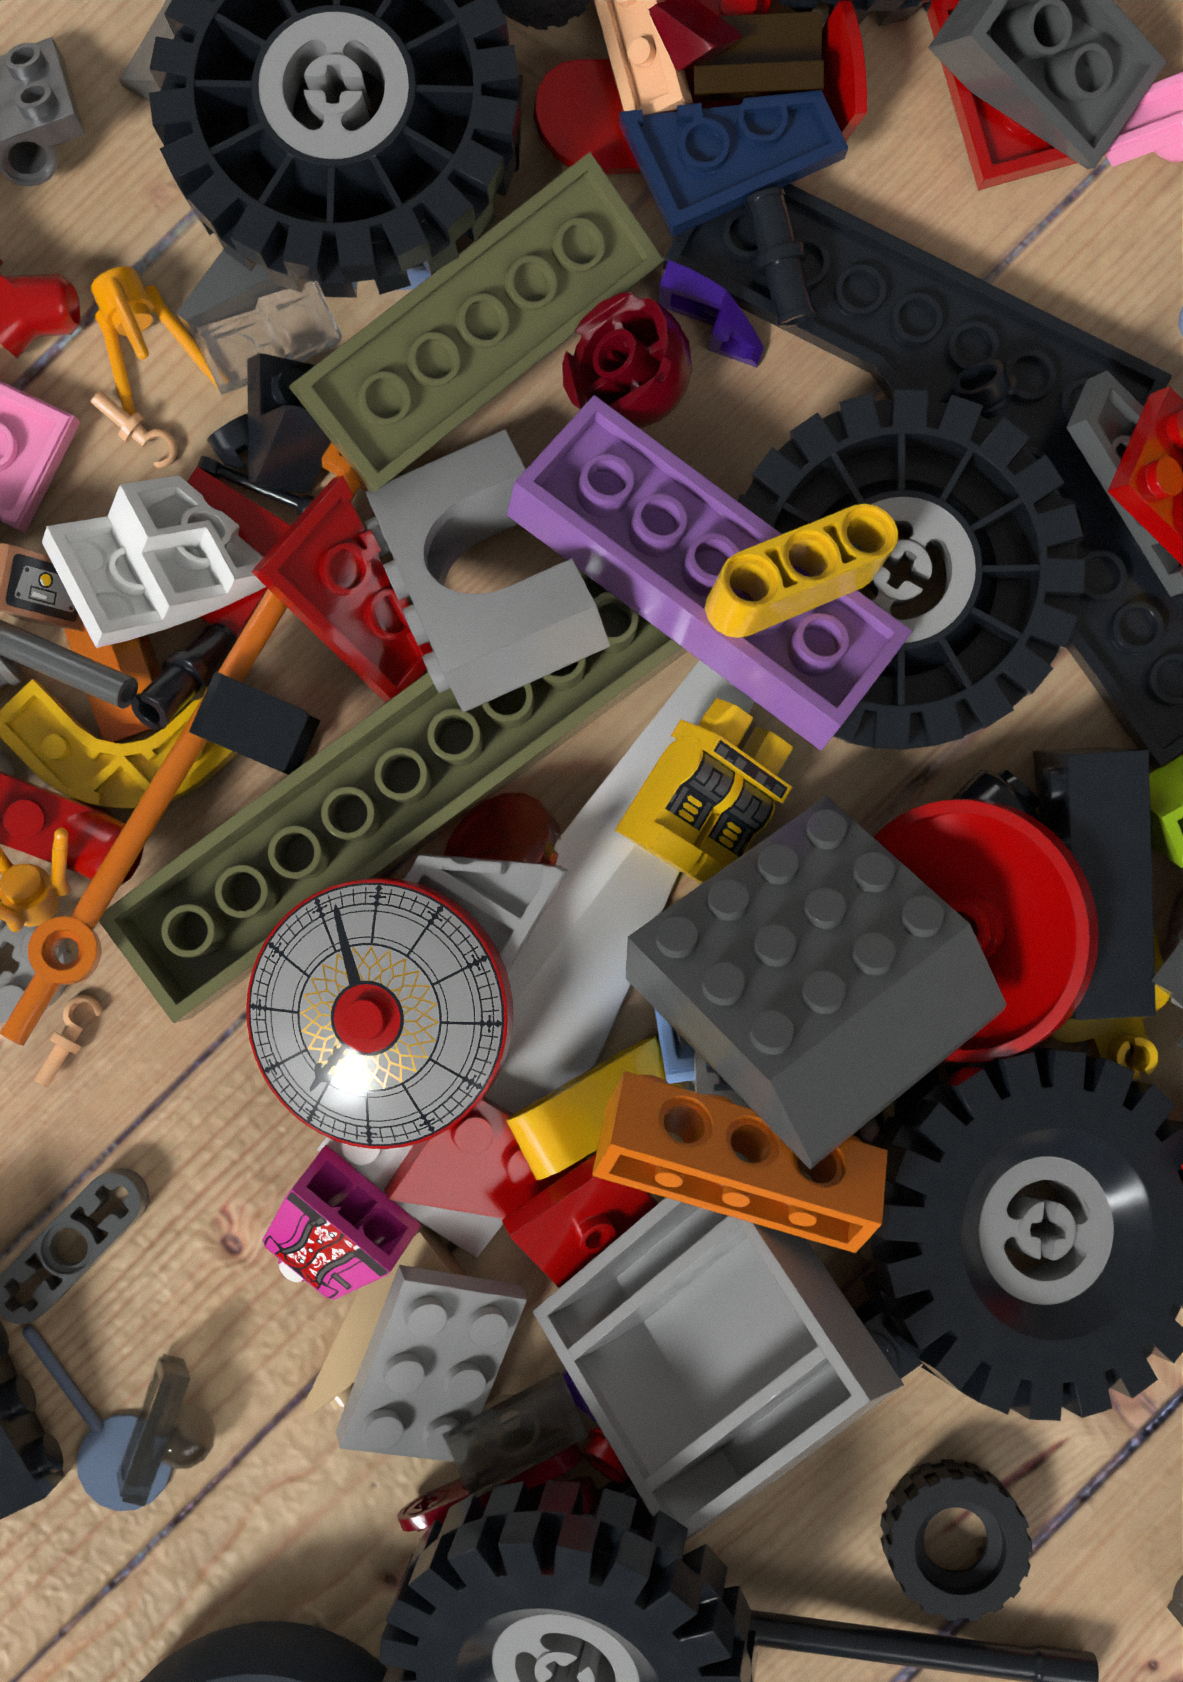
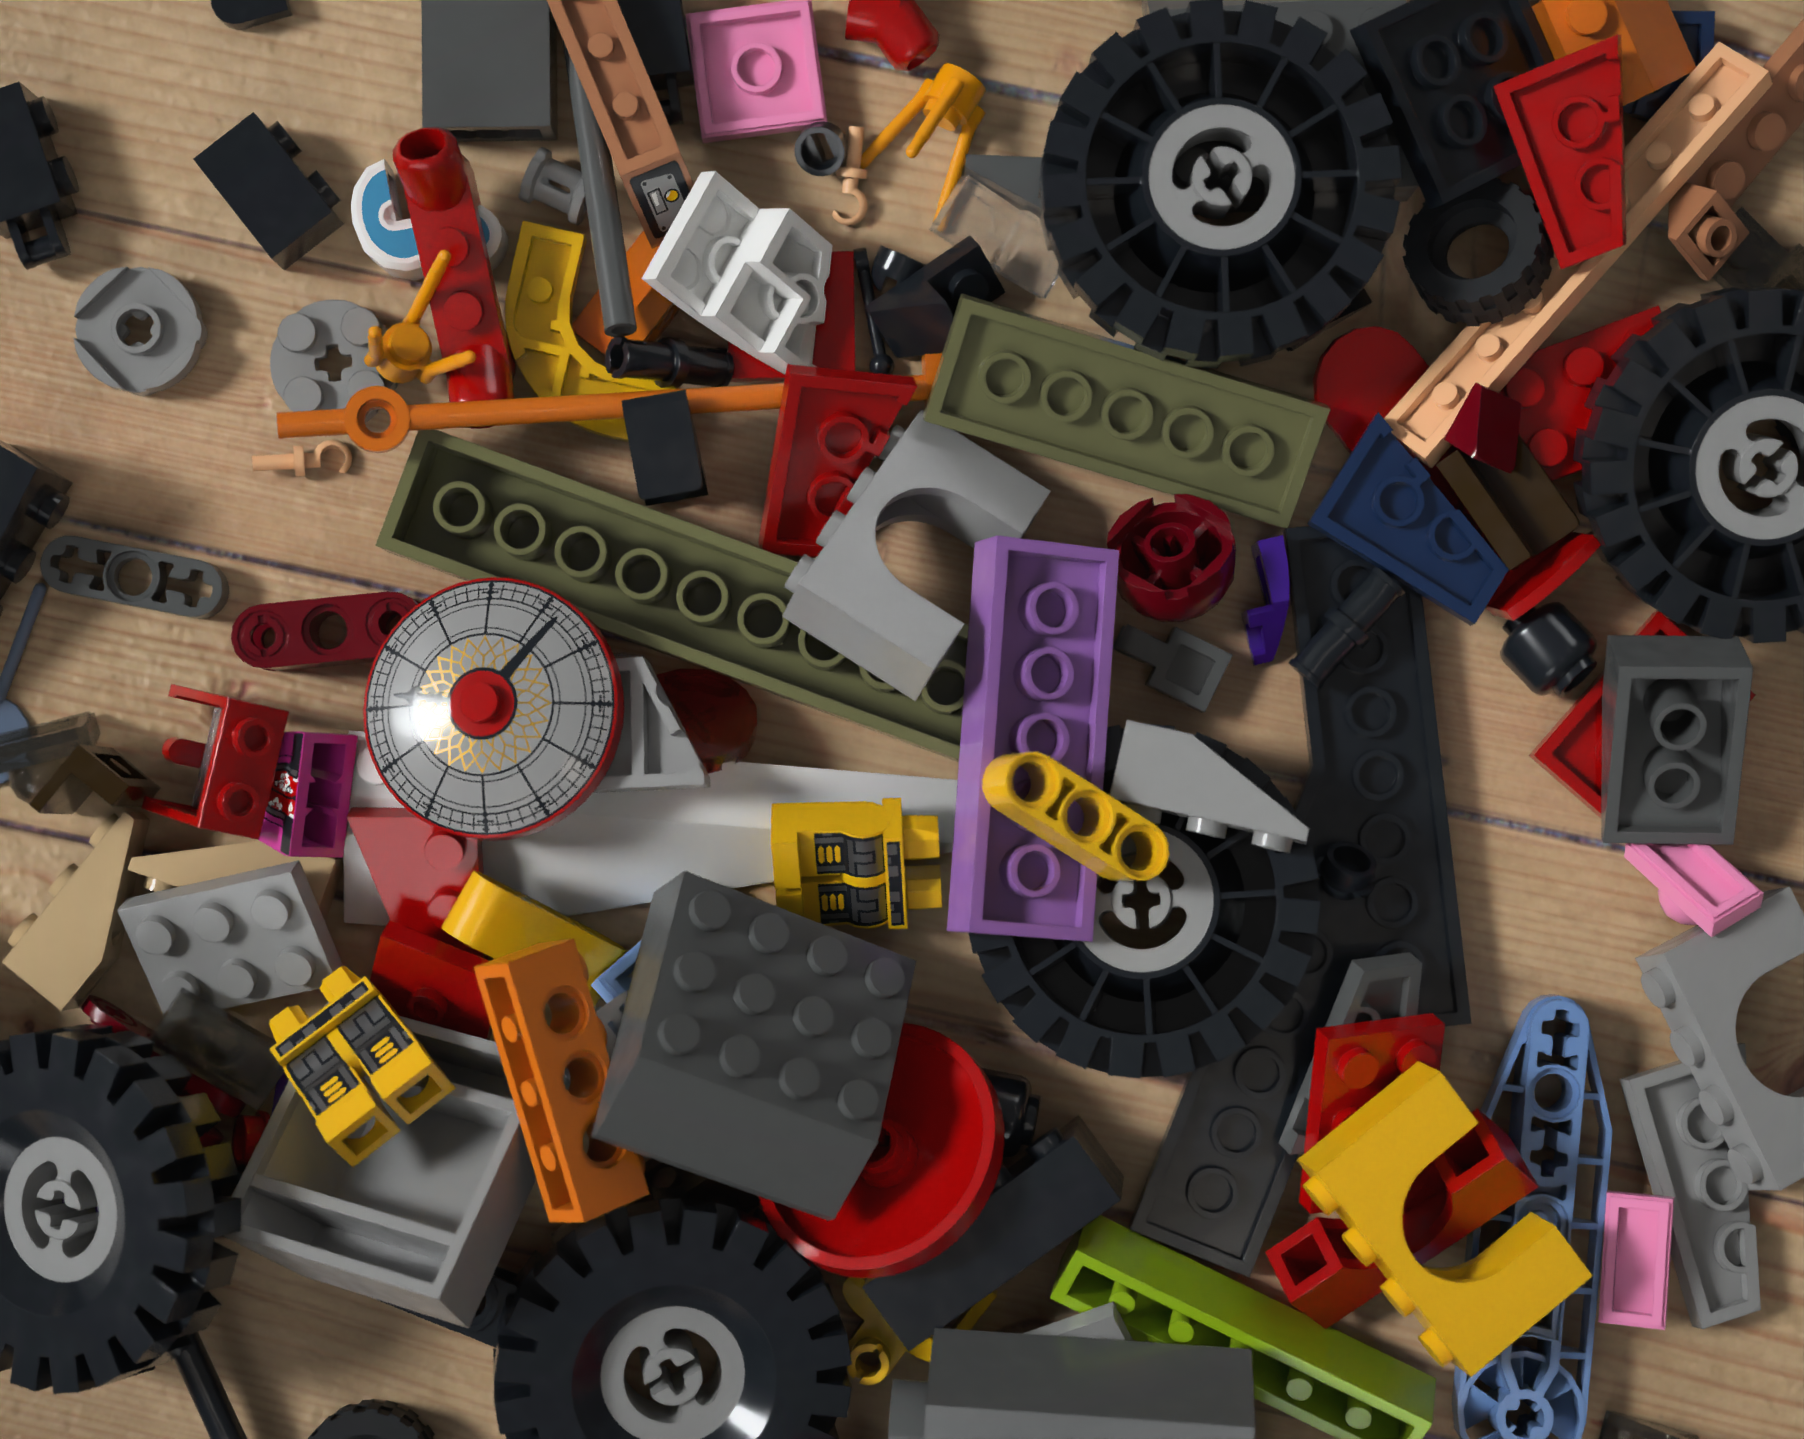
camera: 60 degrees right, 0 degrees up
(90, 449) = (810, 151): none -> black hinge
(202, 1134) = (298, 627): none -> dark red piece
(208, 1391) = (95, 770): none -> dark brown panel
(279, 1266) = (233, 765): none -> red window
(338, 1491) = (80, 929): none -> tan slope
(582, 1335) = (341, 1045): none -> yellow hips
(720, 421) = (1182, 666): none -> dark grey plate
(833, 453) = (1183, 777): none -> light grey slope
(905, 111) = (1549, 649): none -> black head

